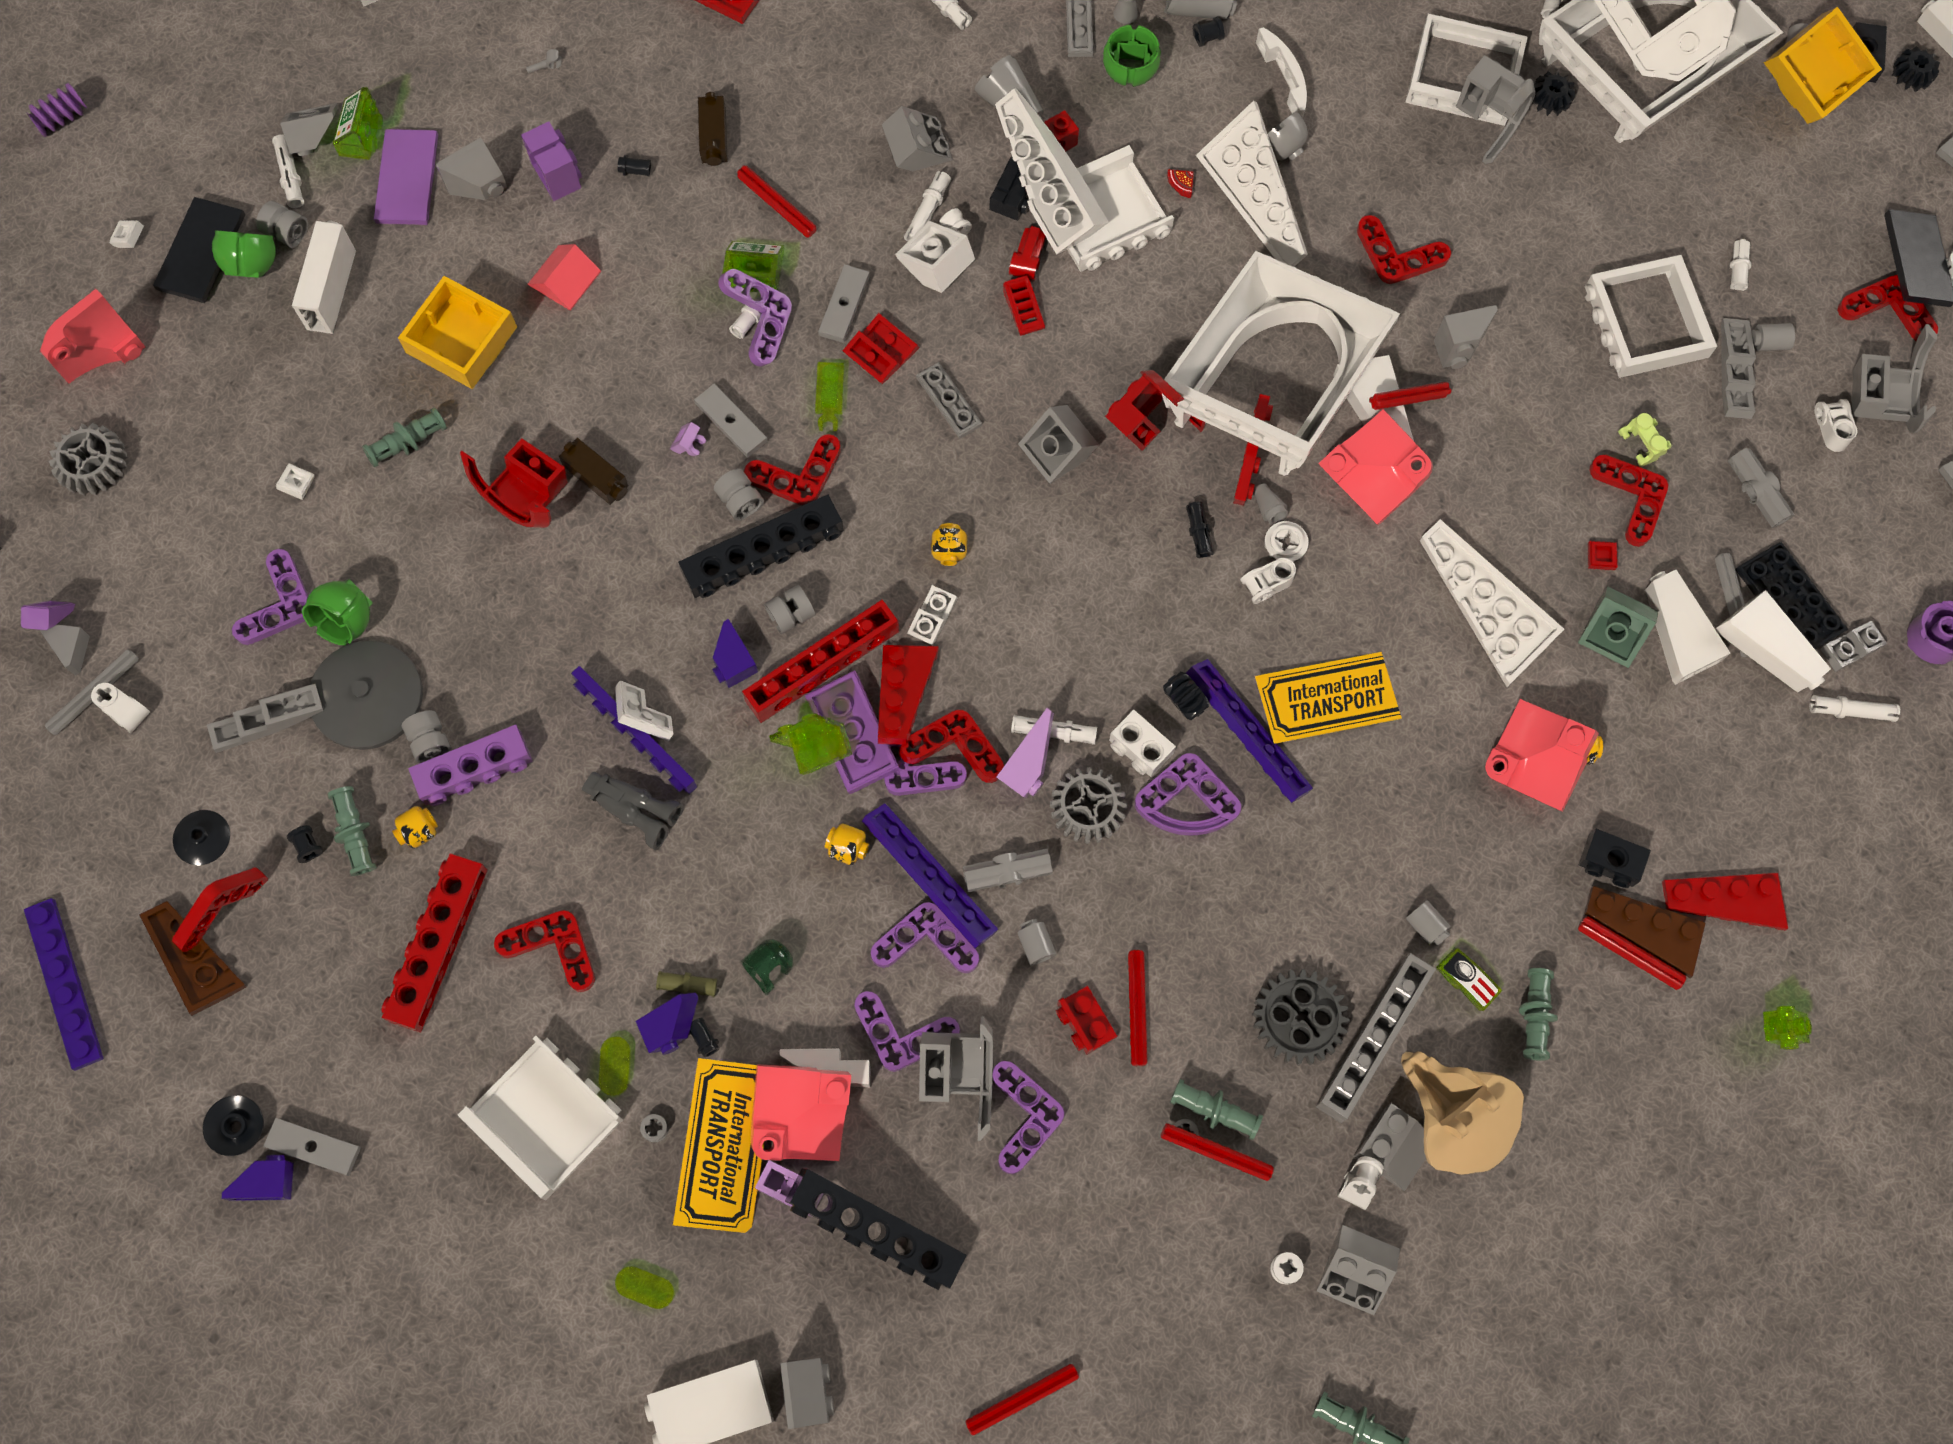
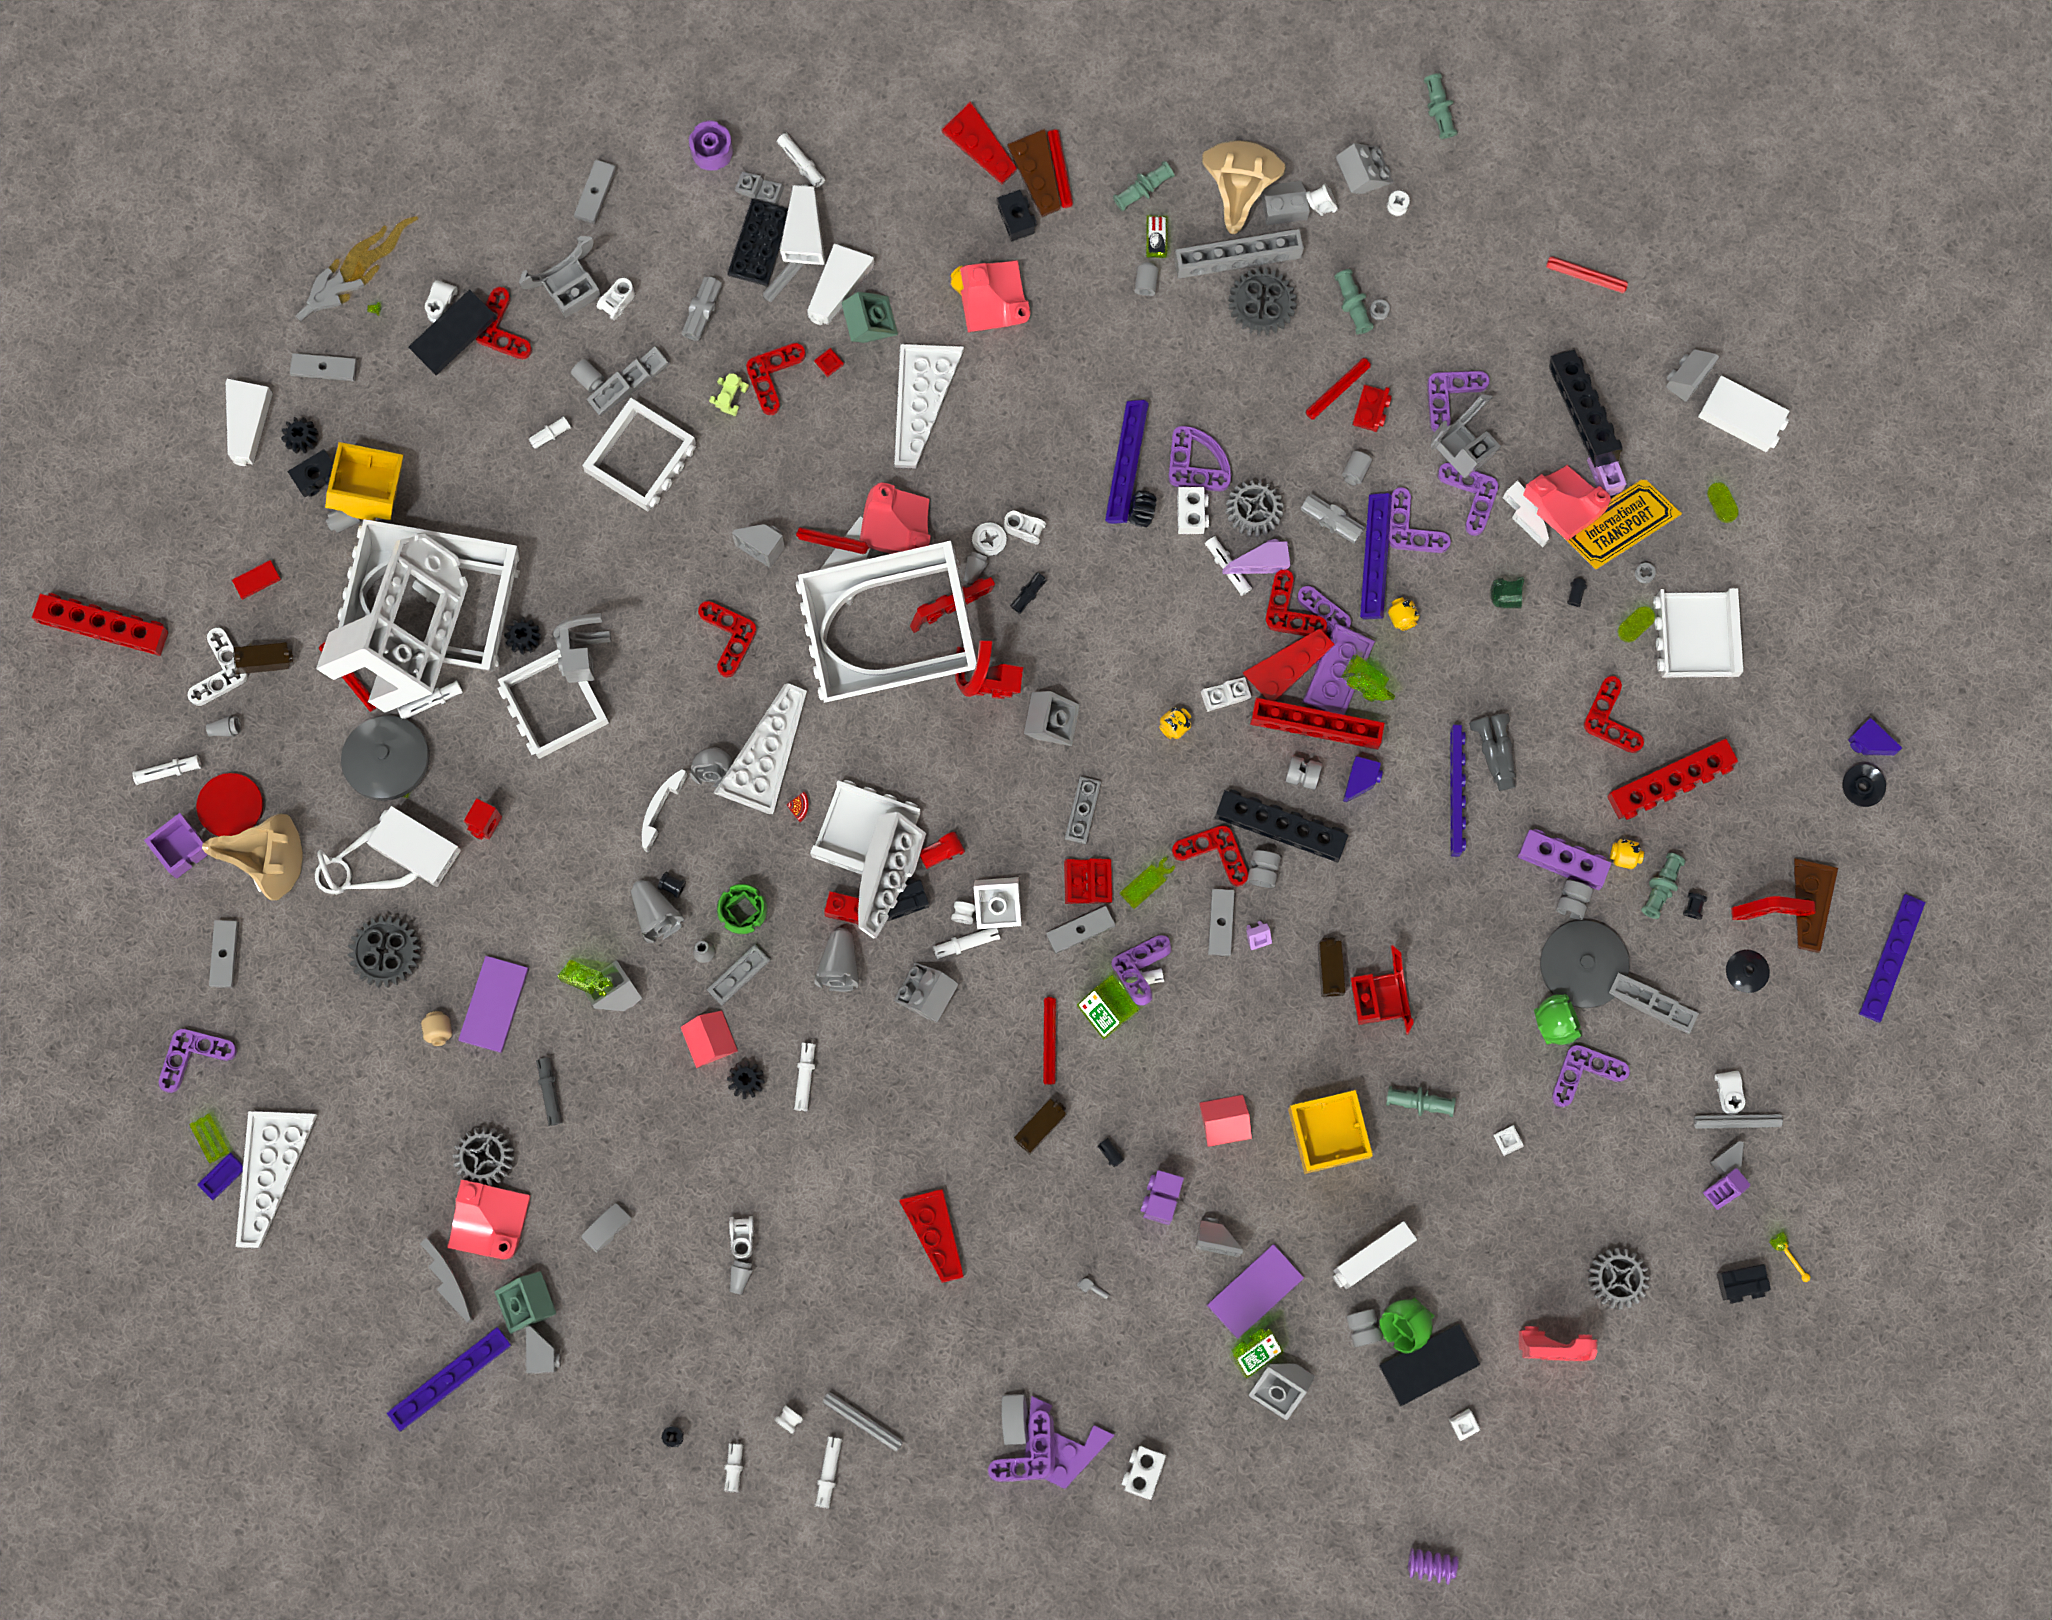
camera: 135 degrees left, 5 degrees up
(289, 180) = (1324, 1371): white pin -> none
(296, 1140) = (1824, 723): light grey tile -> none
(634, 713) = (1448, 796): white tile -> none
(668, 1024) = (1591, 613): dark purple slope -> none
(686, 983) = (1559, 627): olive pin -> none
(1020, 289) = (968, 825): red slope -> none
(1217, 1152) = (1375, 283): red axle -> none
(1327, 697) = (1064, 438): yellow sticker -> none
(1787, 1027) = (1030, 61): clear neon green brick -> none

